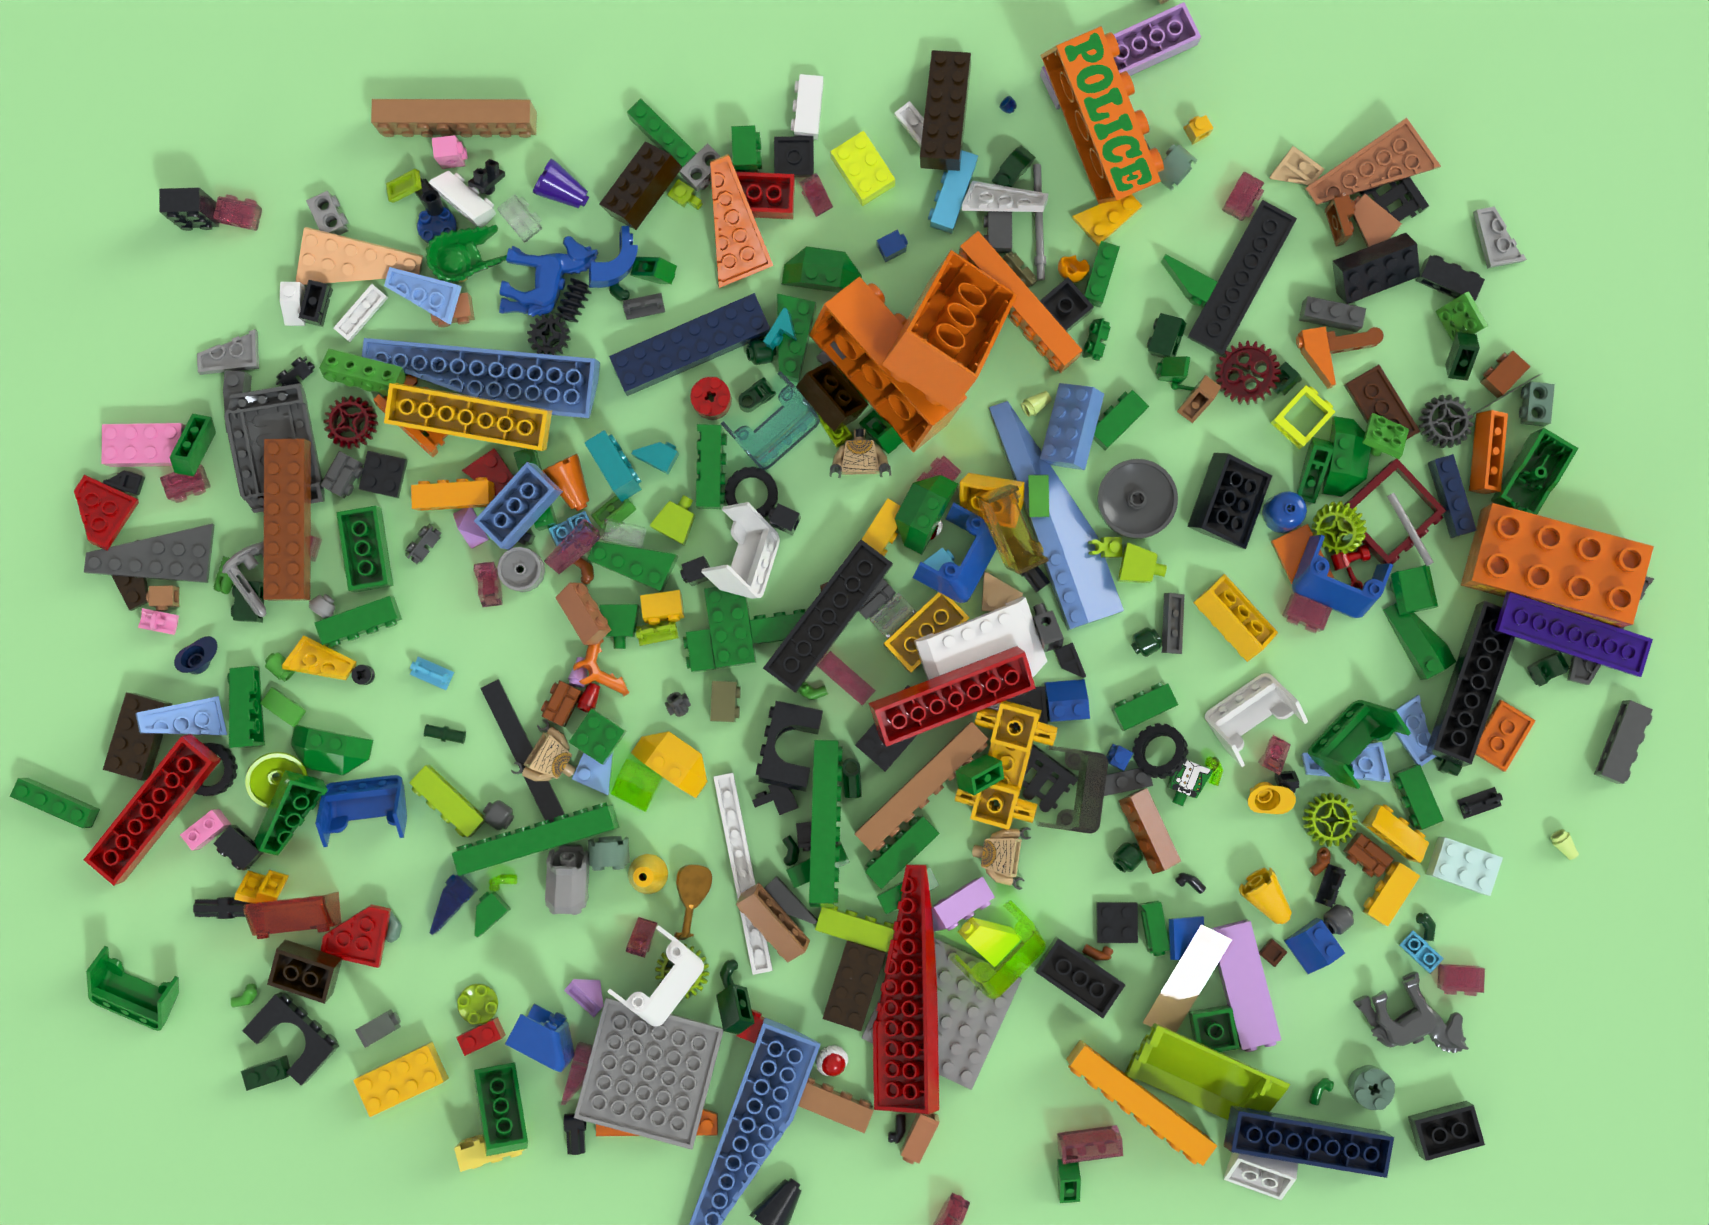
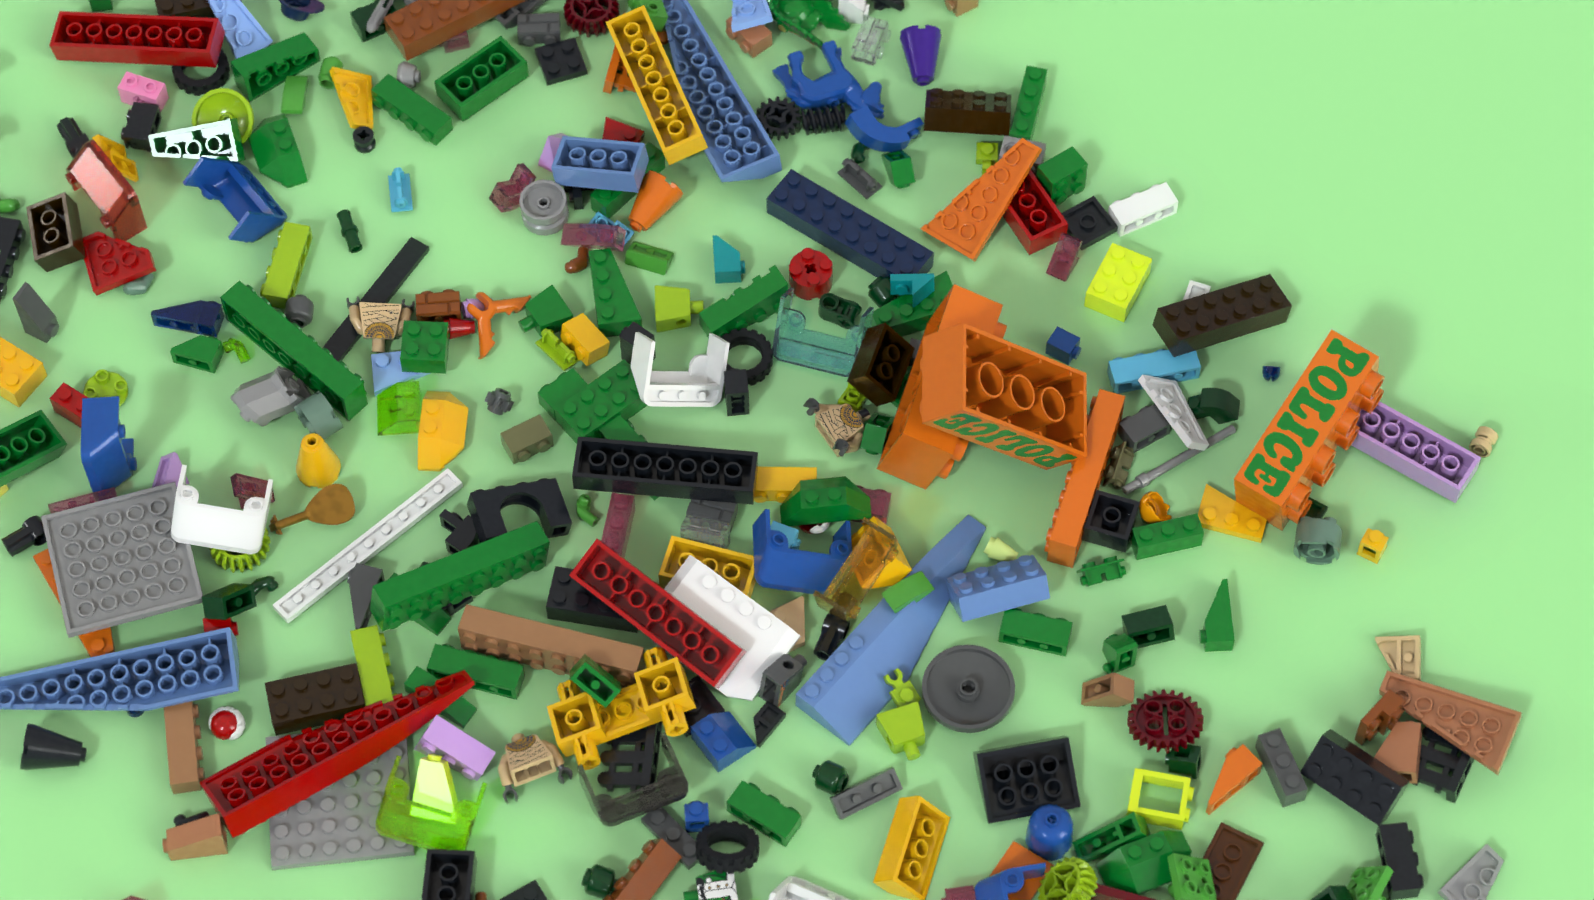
camera: 55 degrees right, 25 degrees down
(417, 549) = (525, 122): dark grey hinge -> none
(452, 495) = (574, 113): light orange brick -> none
(583, 613) = (534, 275): nougat brick -> none
(614, 465) = (690, 225): teal brick -> none
(623, 533) = (633, 268): clear brick -> none
(773, 922) = (335, 588): medium nougat brick -> none
(820, 270) = (1003, 291): green wedge -> none
(852, 781) = (520, 589): dark green piece -> none
(1242, 278) = (1257, 666): black plate -> none
(1243, 195) = (1337, 622): clear pink brick -> none
(1354, 341) = (1280, 816): dark orange leg -> none

